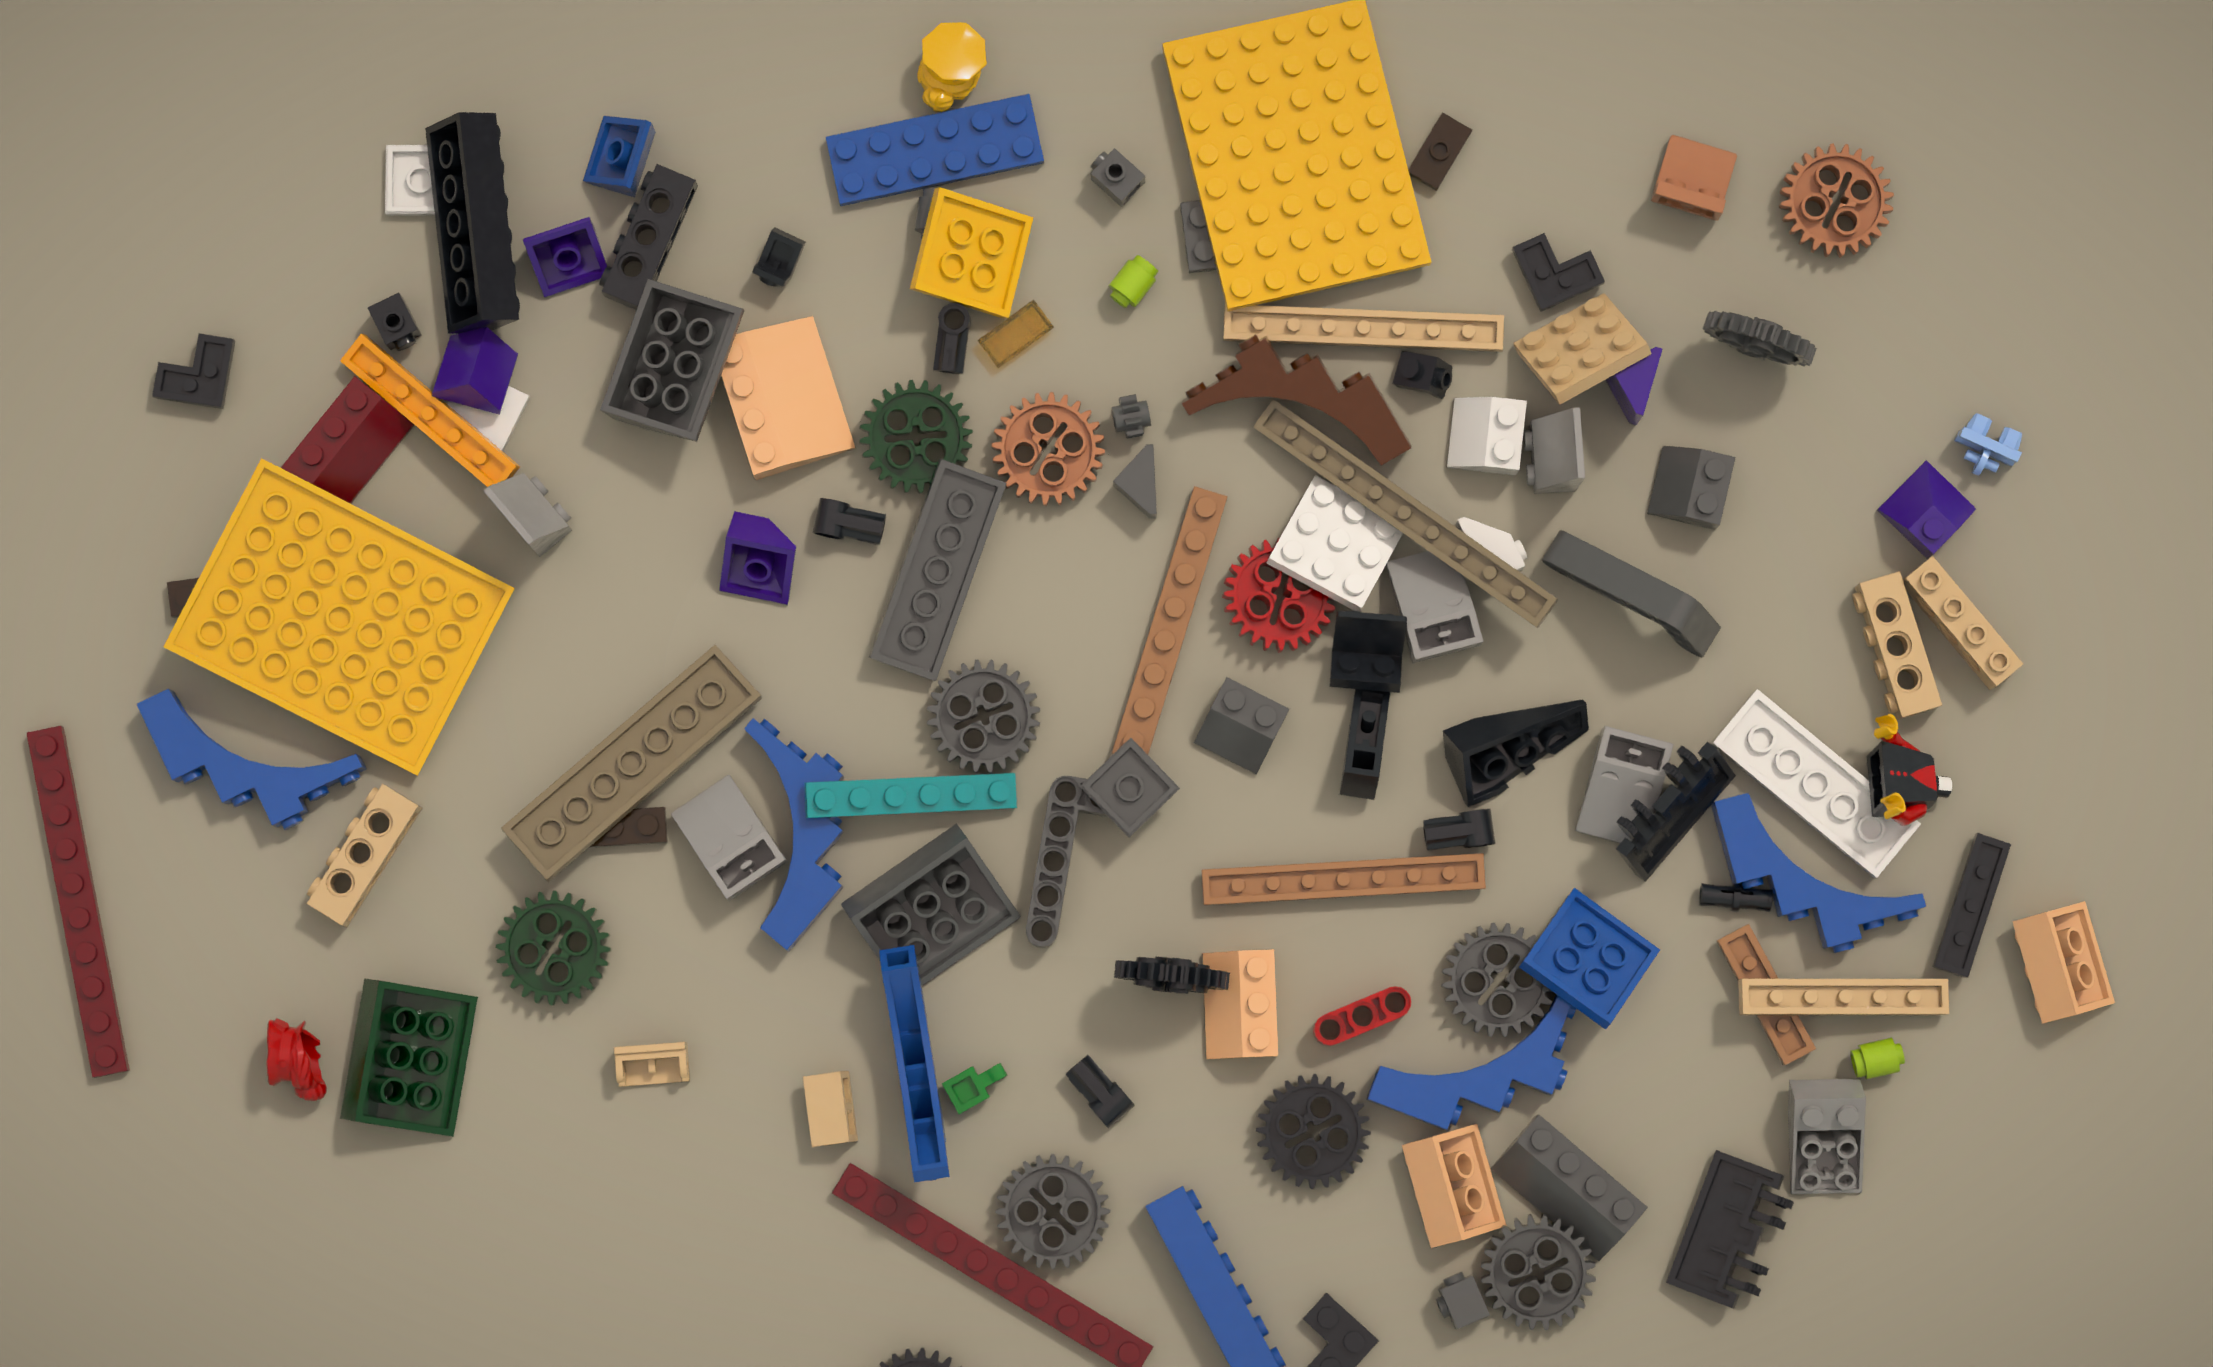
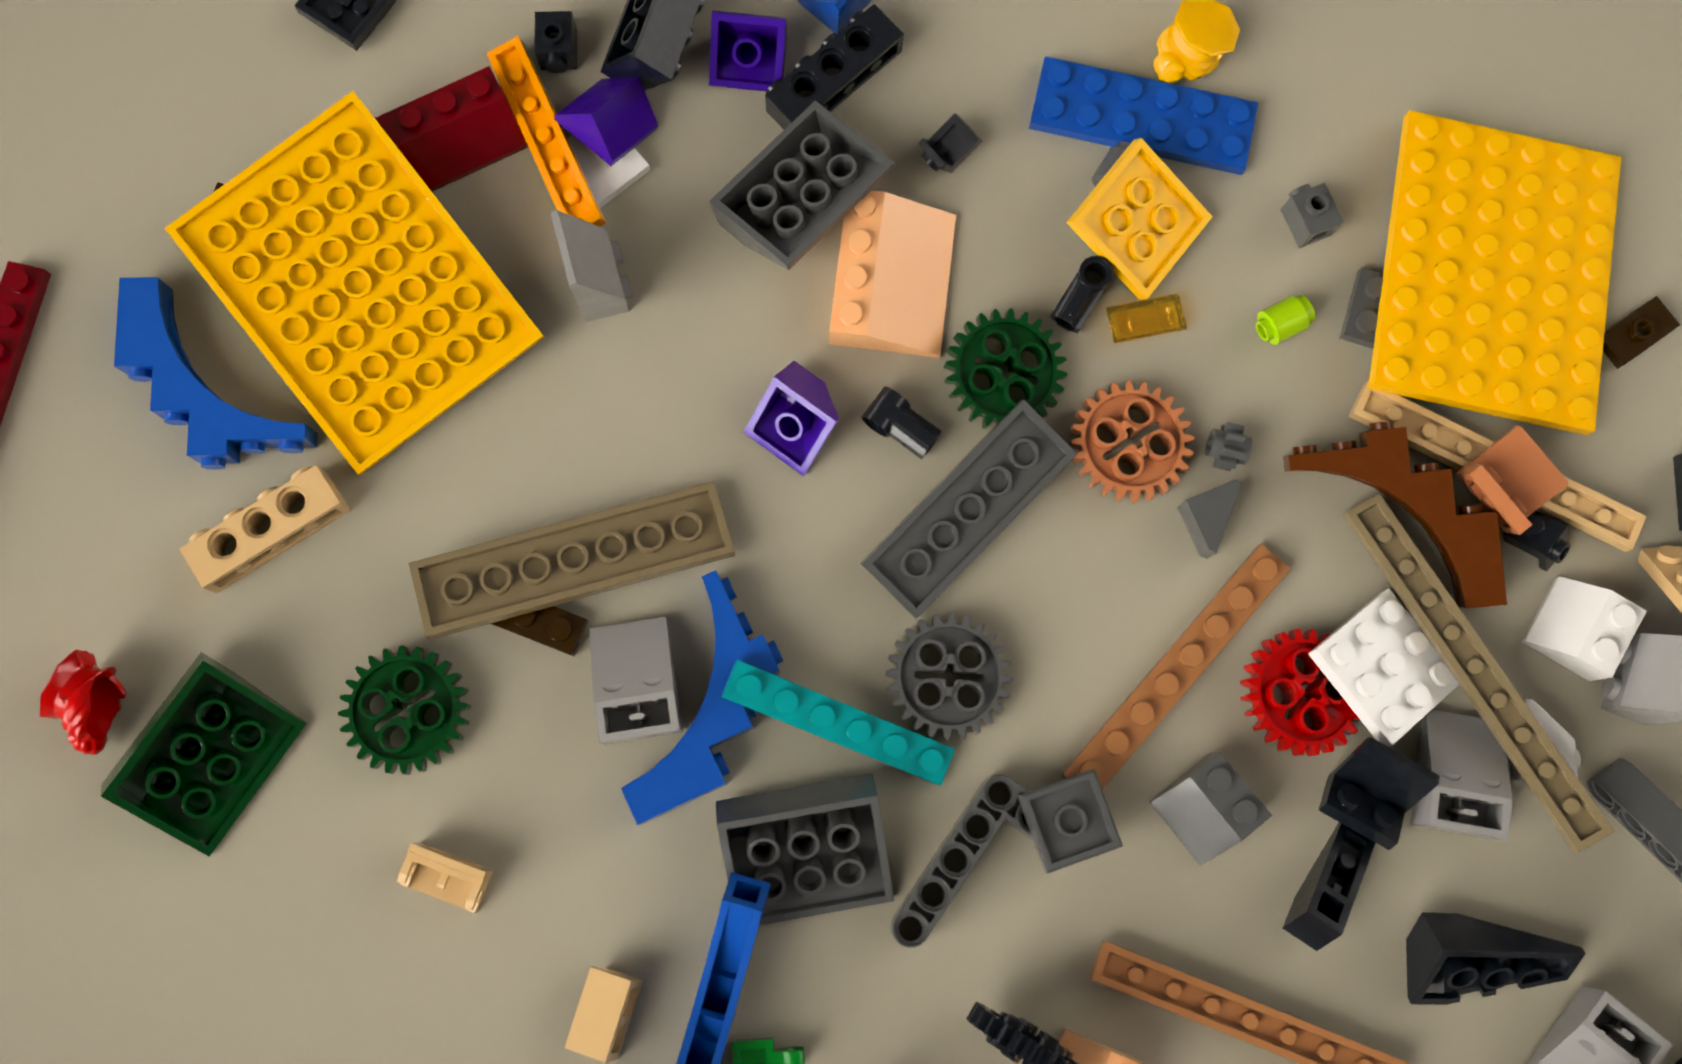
camera: 20 degrees right, 5 degrees down
(1375, 338) = (1513, 479): none -> nougat bracket
(1467, 830) = (1398, 1027): black piece -> none

